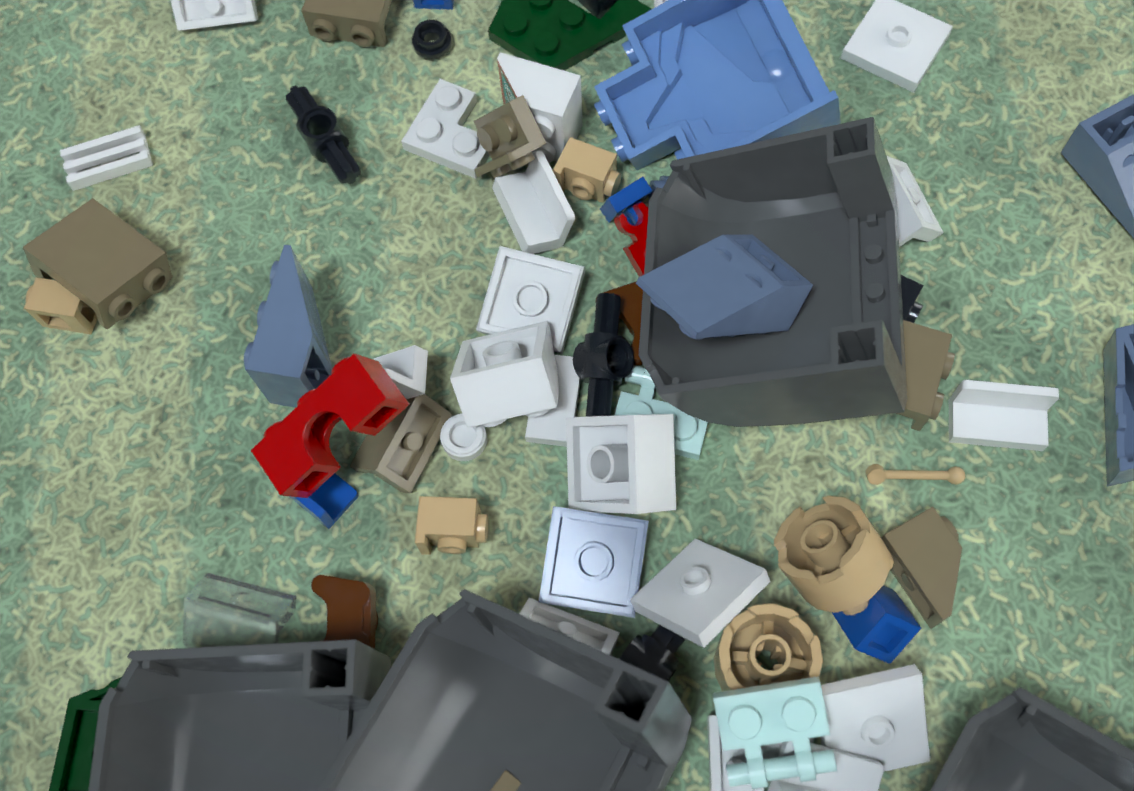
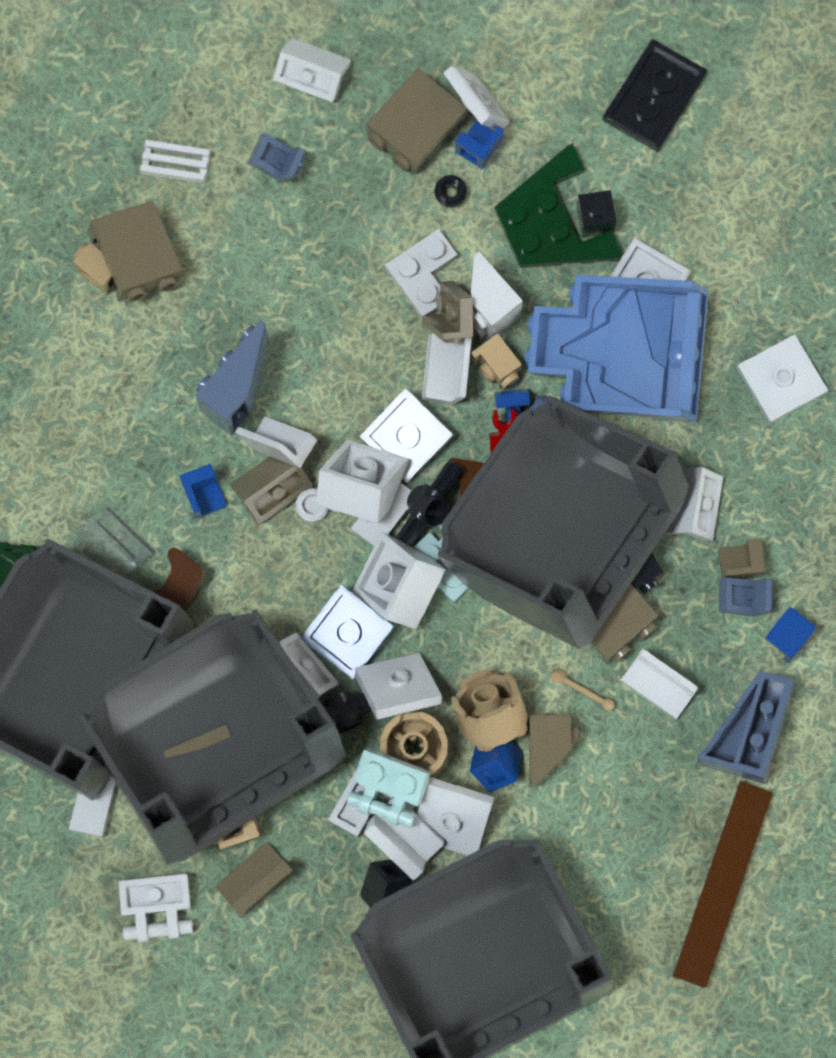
camera: 25 degrees right, 10 degrees up
(219, 97) = (276, 158): none -> sand blue bracket
(298, 448) = (202, 464): red arch -> none
(323, 134) = (333, 215): black axle -> none
(449, 524) = (272, 559): tan brick -> none
(728, 289) = (526, 508): sand blue slope -> none
(995, 234) = (743, 560): none -> dark tan panel
(1027, 267) = (745, 596): none -> sand blue bracket
(1106, 277) = (790, 633): none -> blue panel

